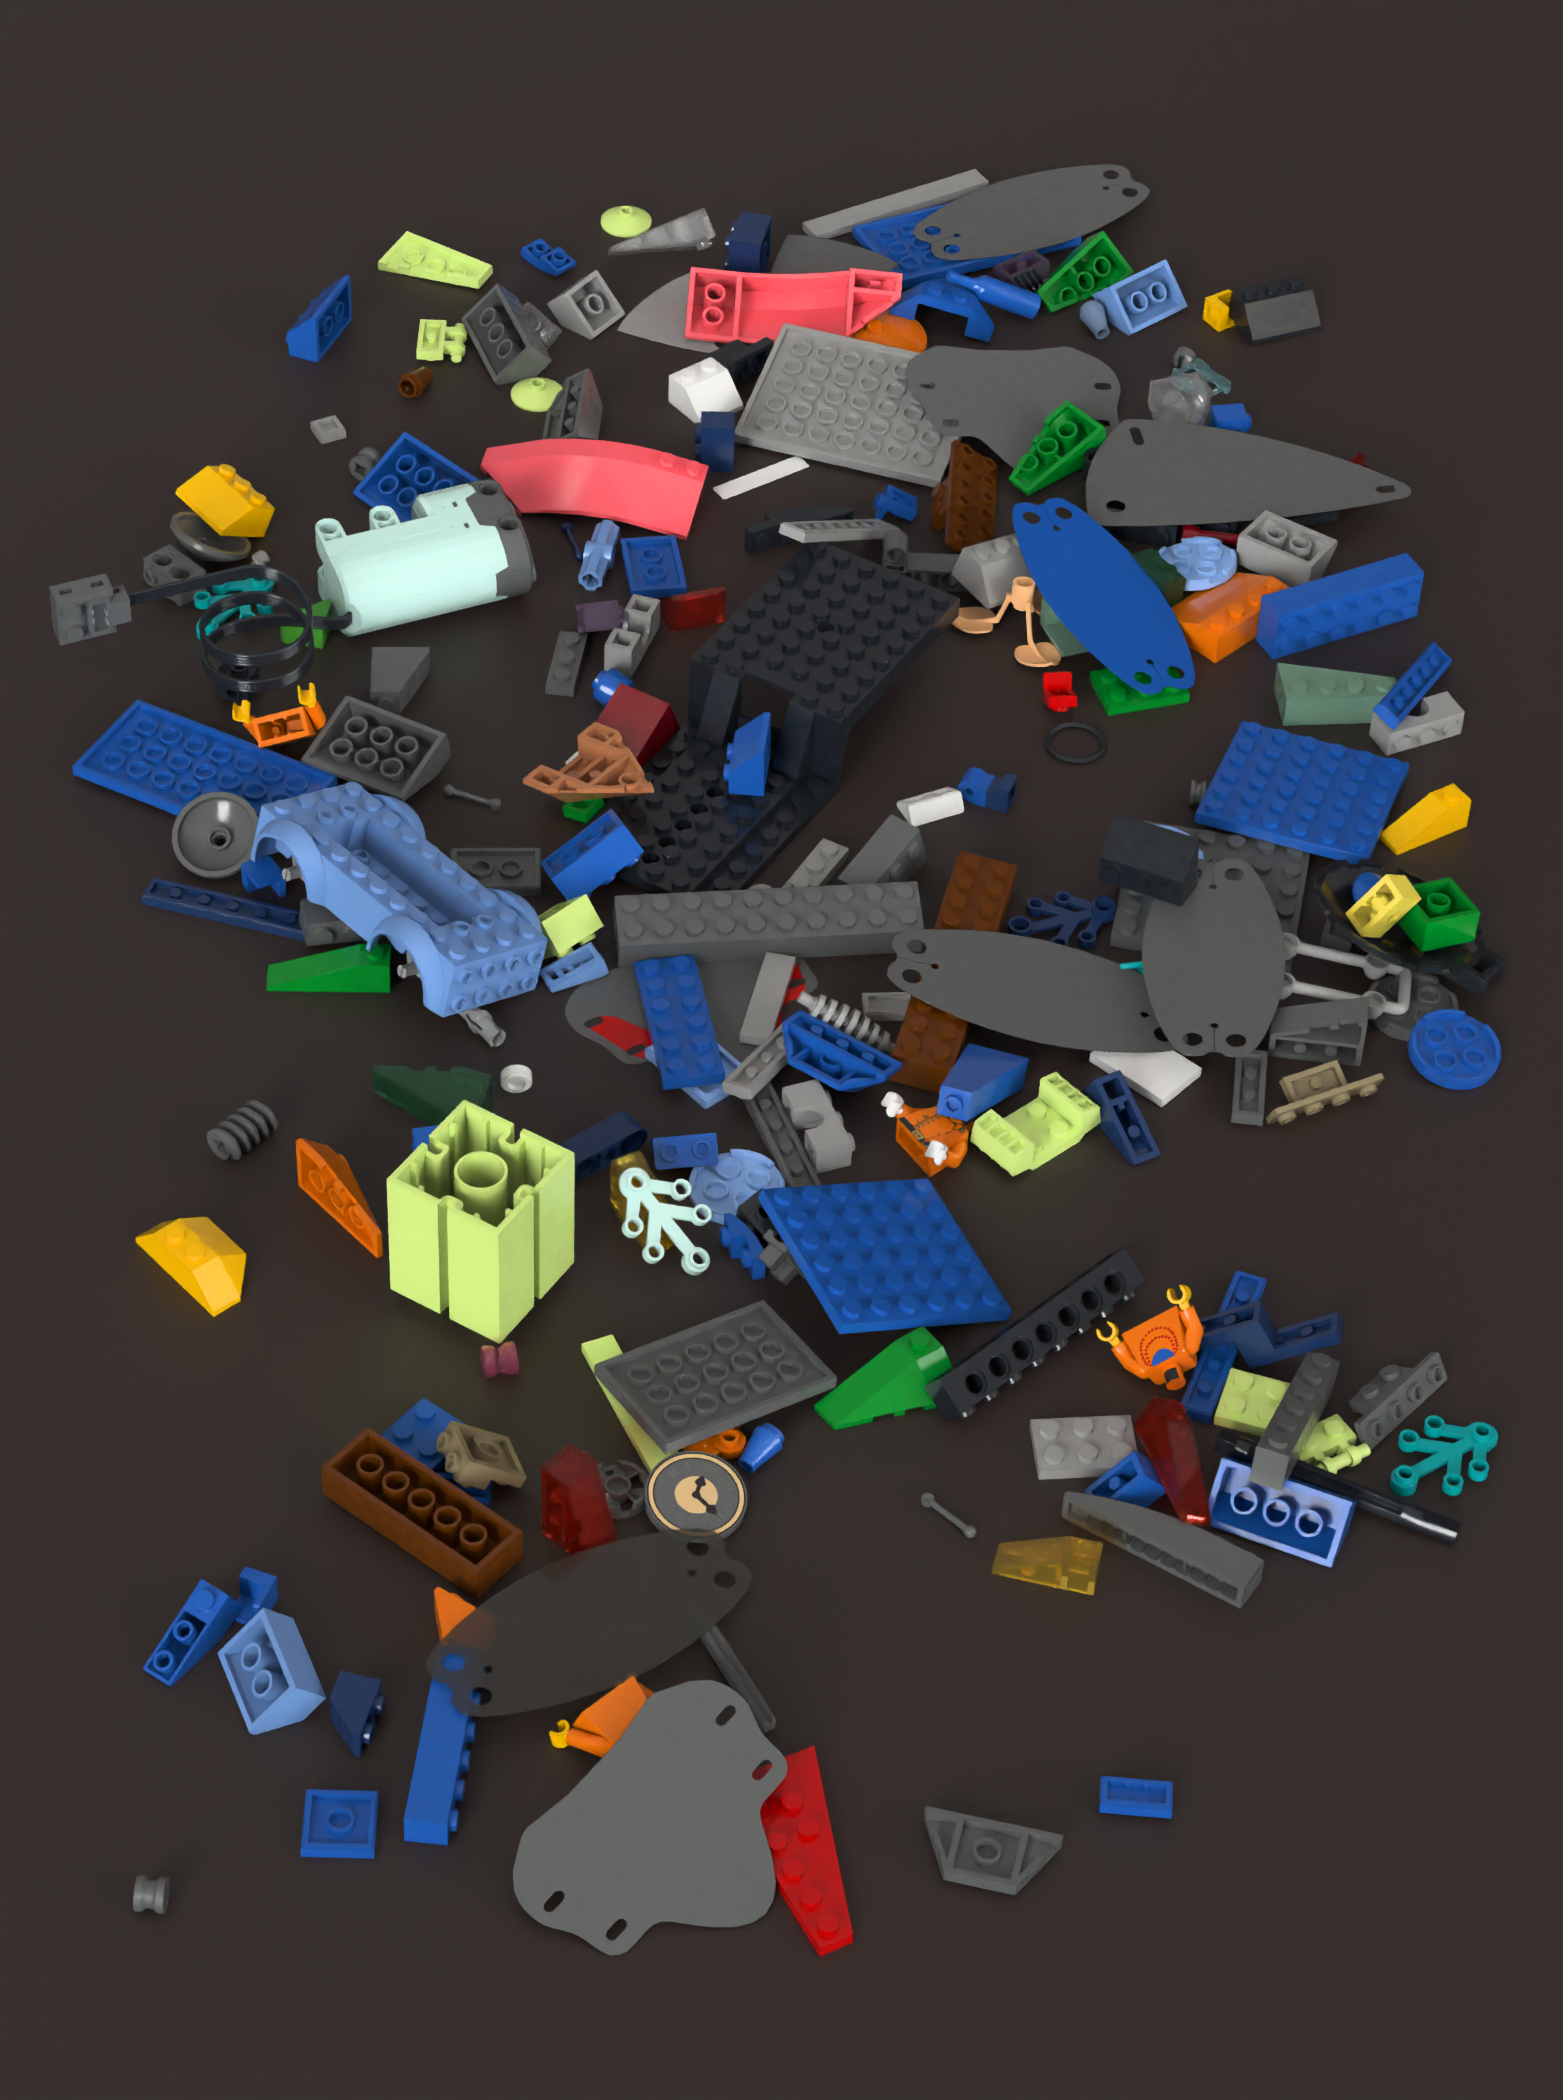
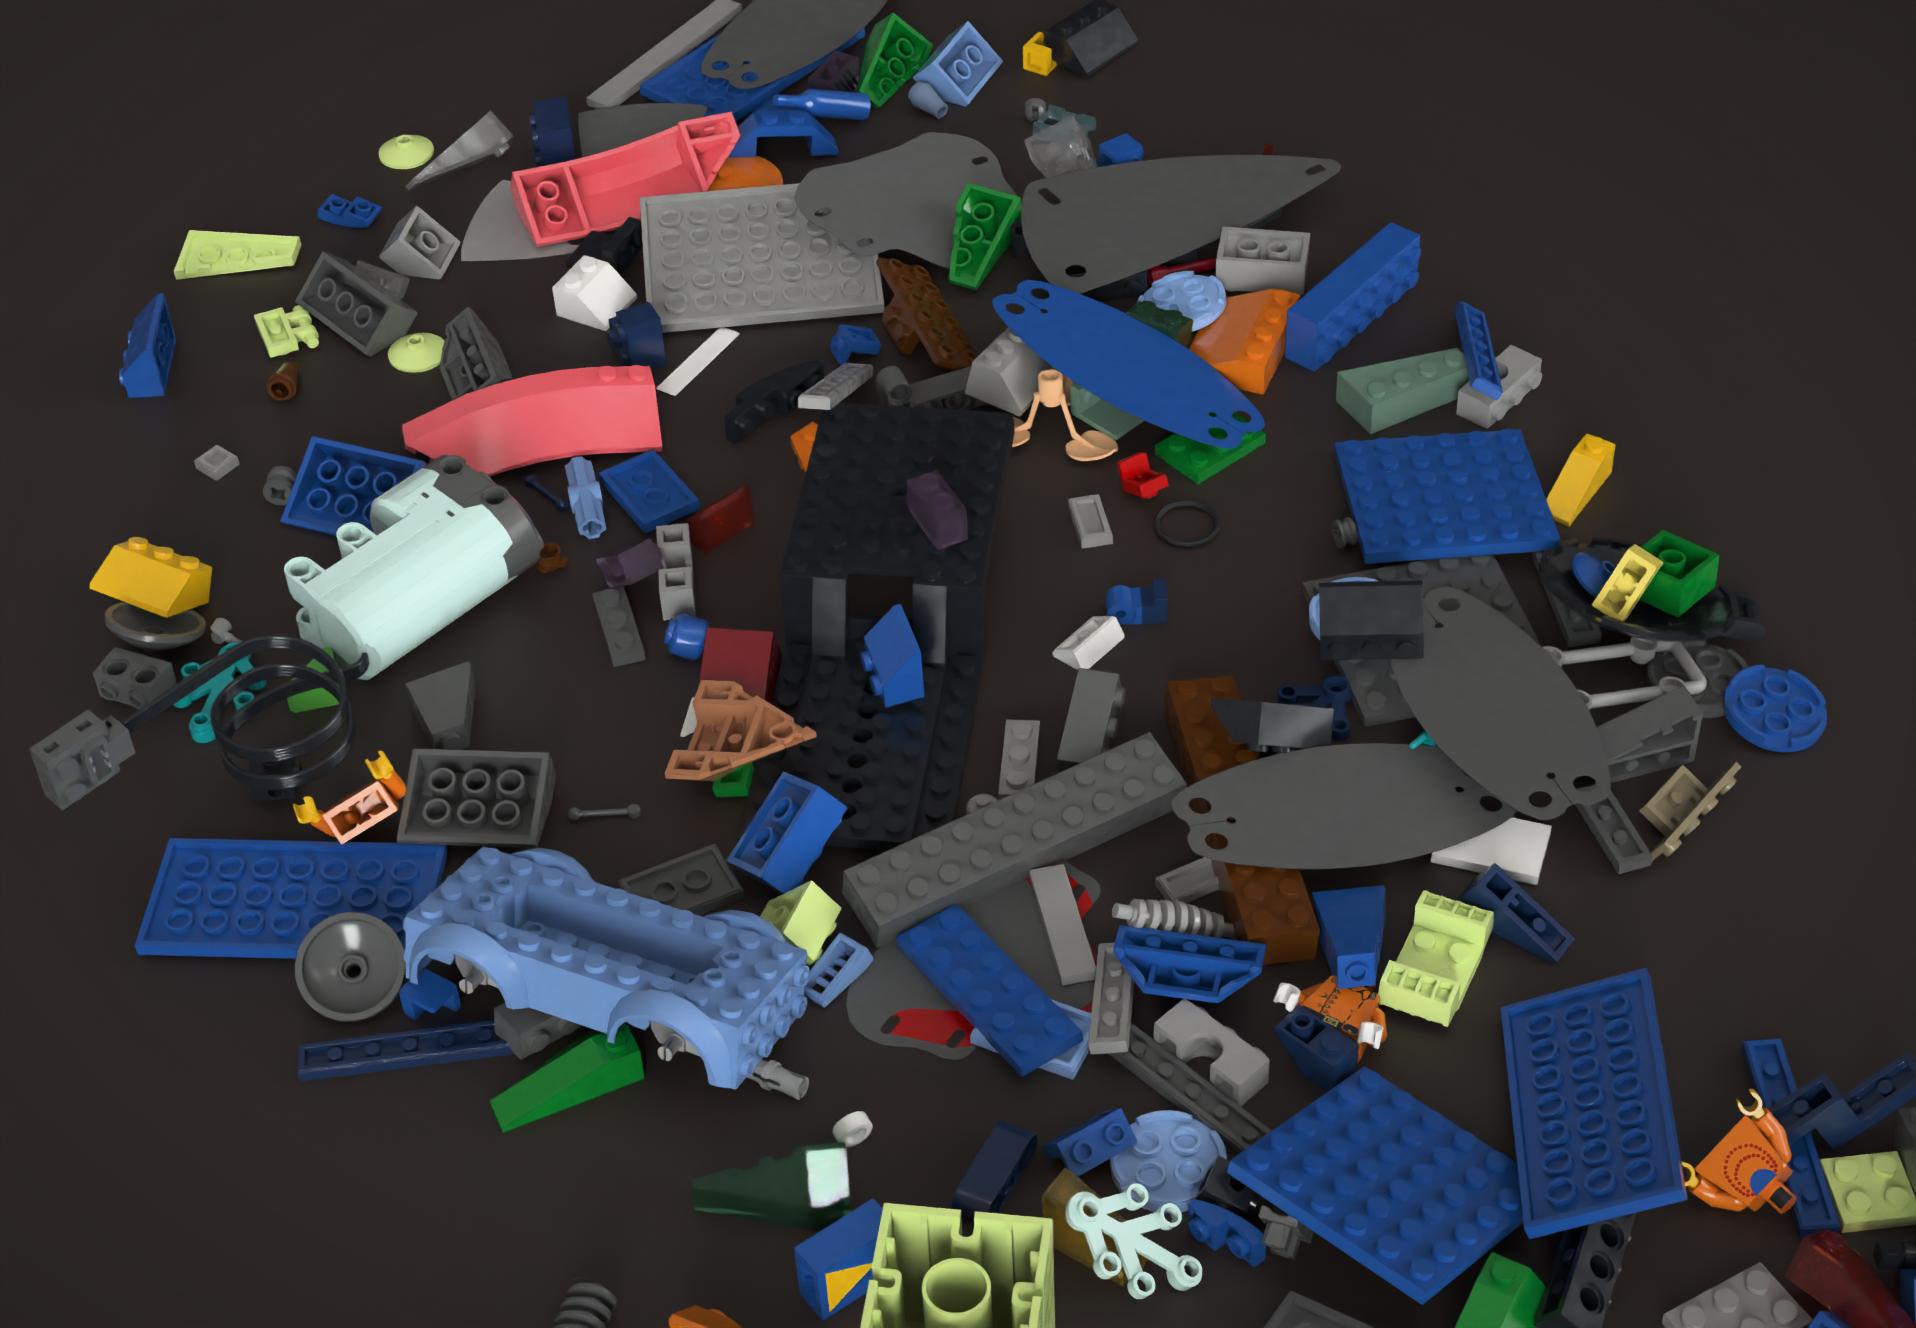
camera: 20 degrees left, 0 degrees up
(543, 592) = (551, 558): none -> reddish brown plate
(838, 649) = (937, 510): none -> clear purple brick
(897, 1149) = (1317, 1048): none -> dark blue slope
(996, 713) = (1090, 521): none -> light grey tile
(1020, 911) = (1274, 724): none -> black slope
(1067, 1256) = (1591, 1105): none -> blue plate

